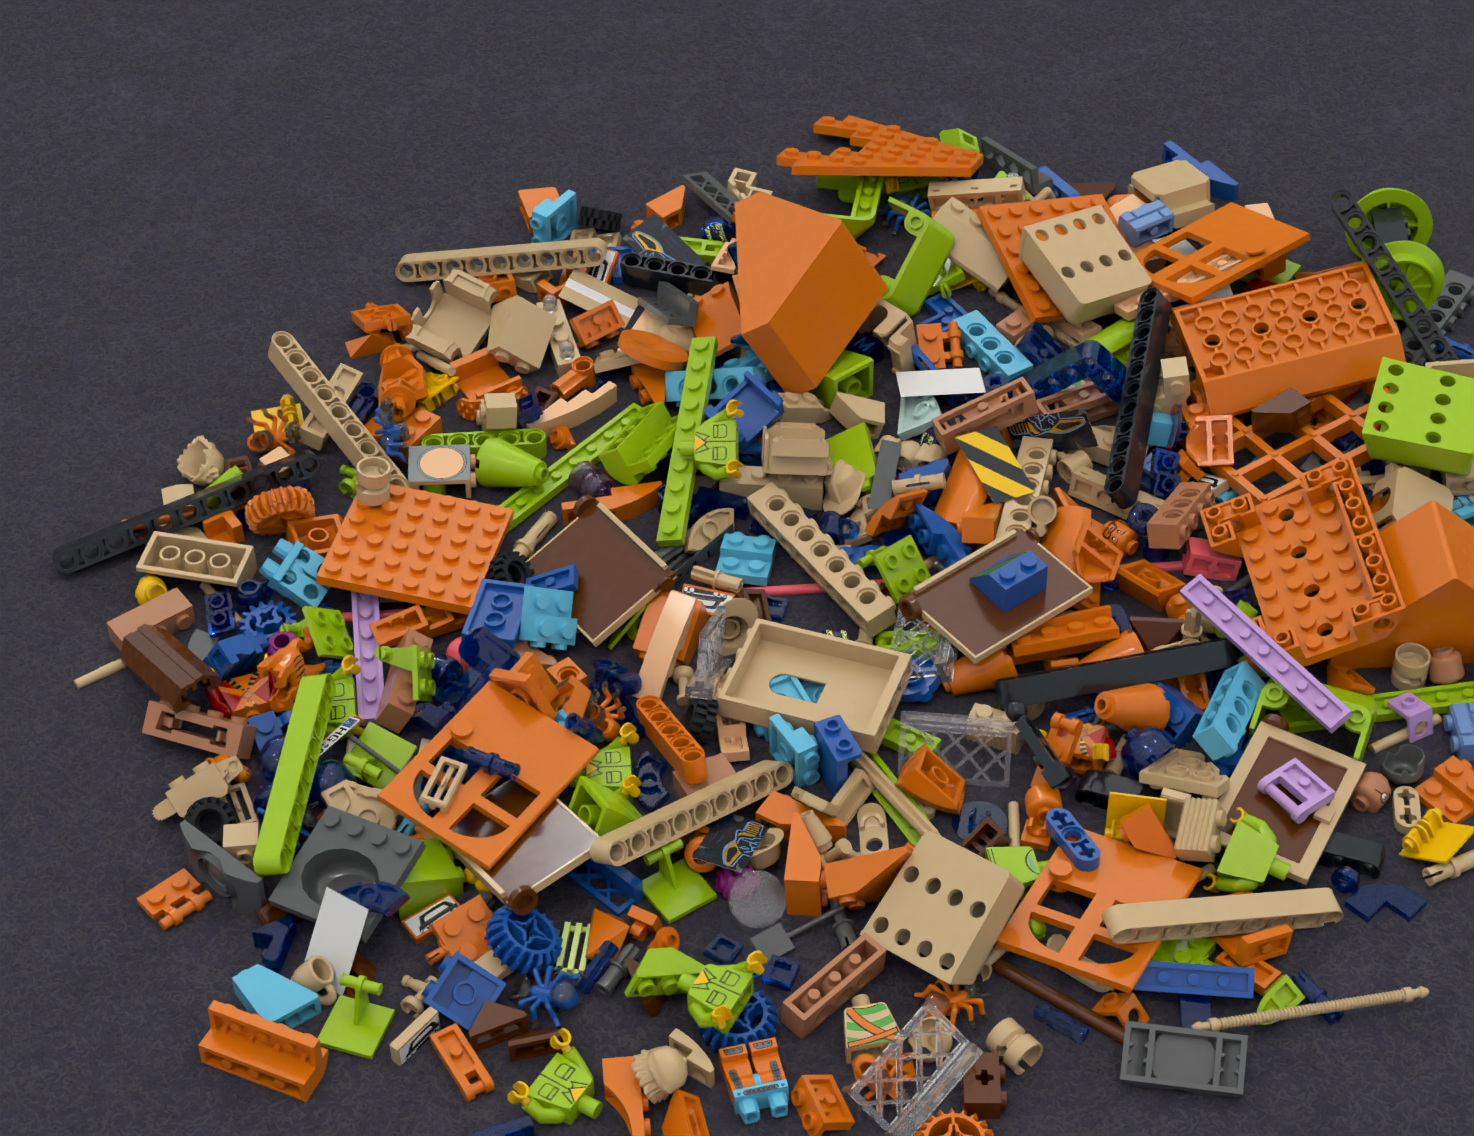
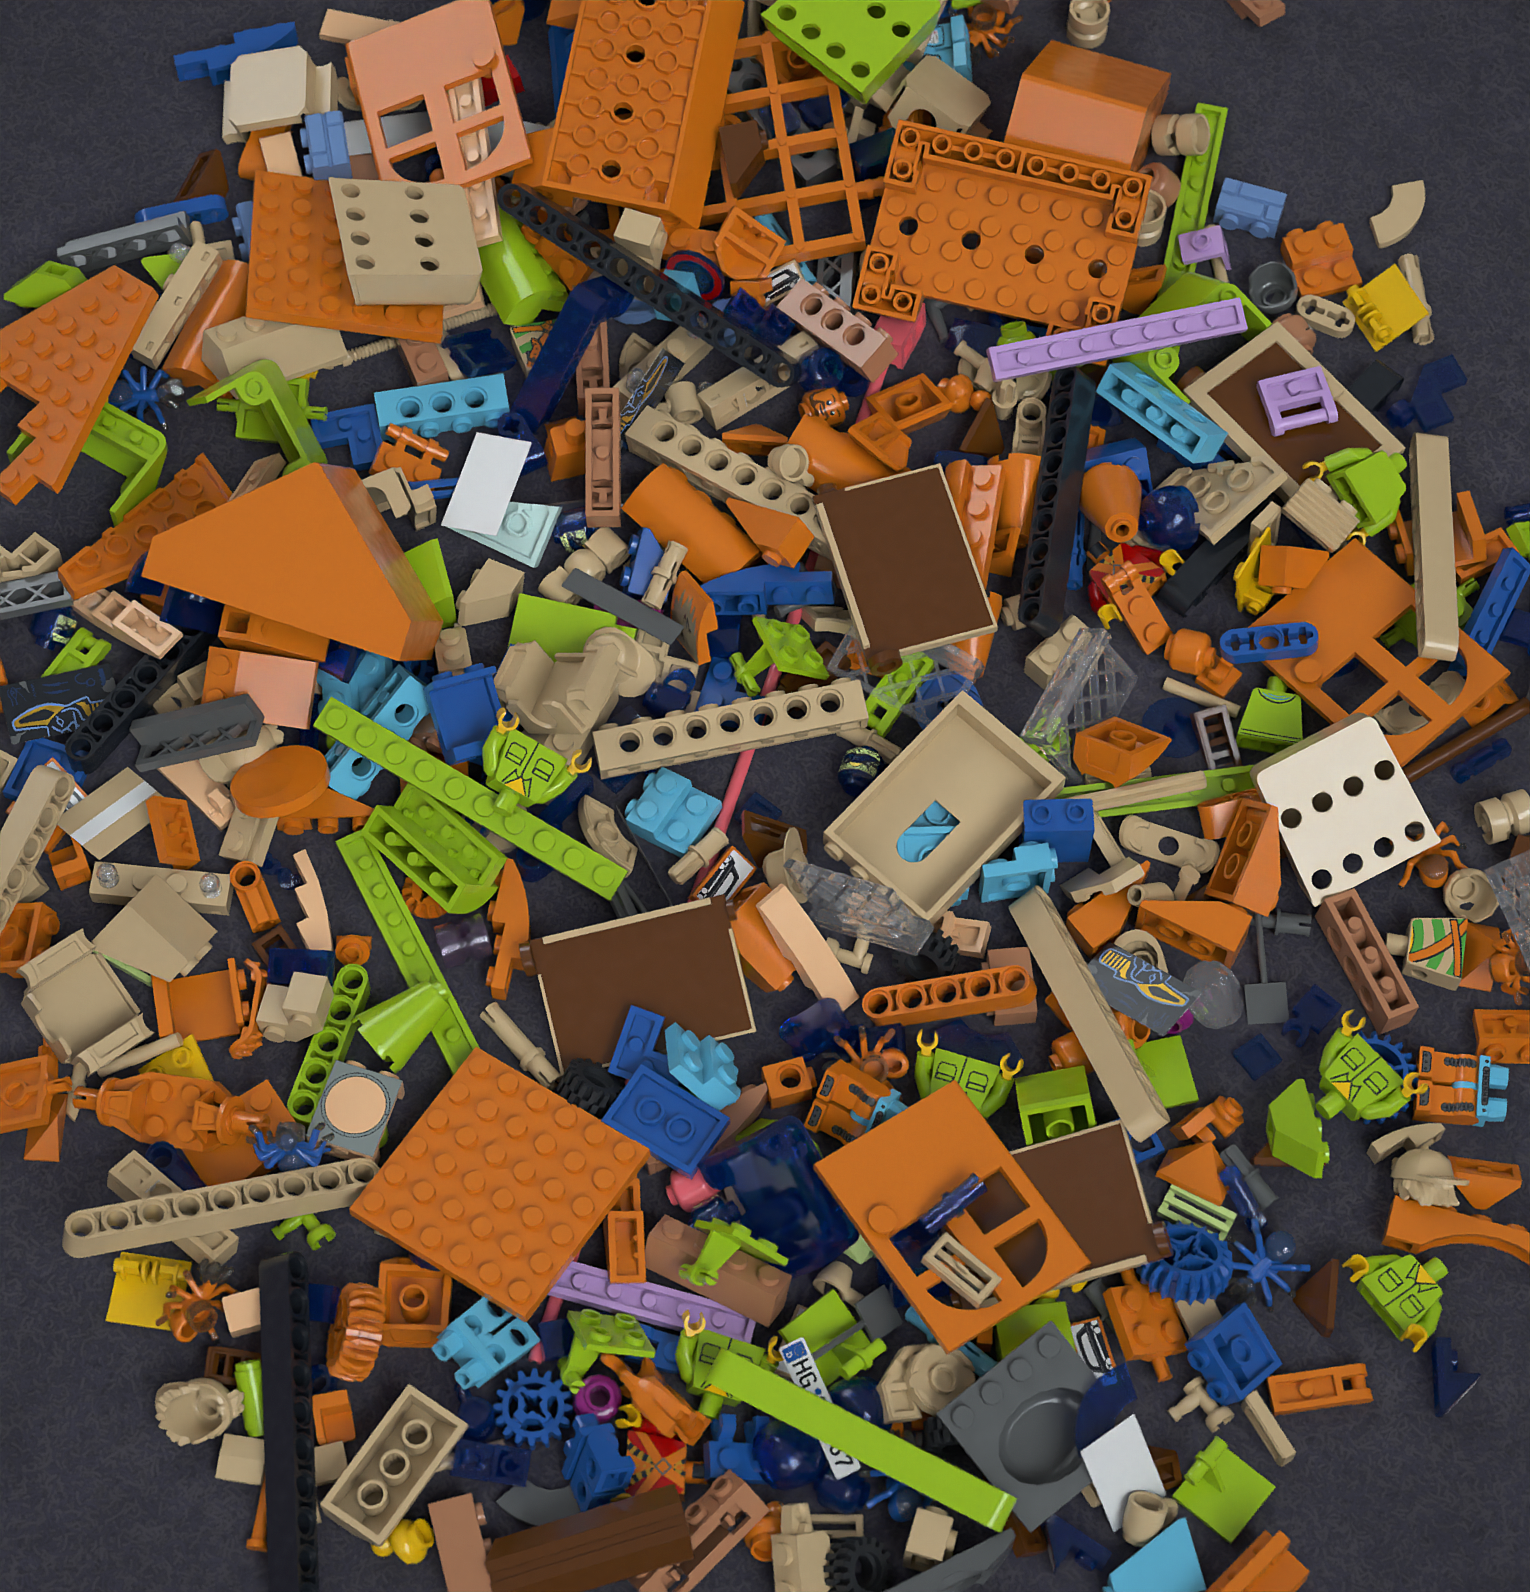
camera: 70 degrees left, 20 degrees up
(373, 481) = (391, 1194): tan wheel -> none
(496, 1024) = (1285, 1336): reddish brown slope -> none
(528, 683) = (842, 1122): orange bracket -> none
(584, 728) = (913, 1086): clear blue axle -> none
(995, 464) = (684, 481): sticker -> none
(1012, 579) = (900, 539): blue slope -> none
(1056, 772) = (1172, 616): black plate -> none

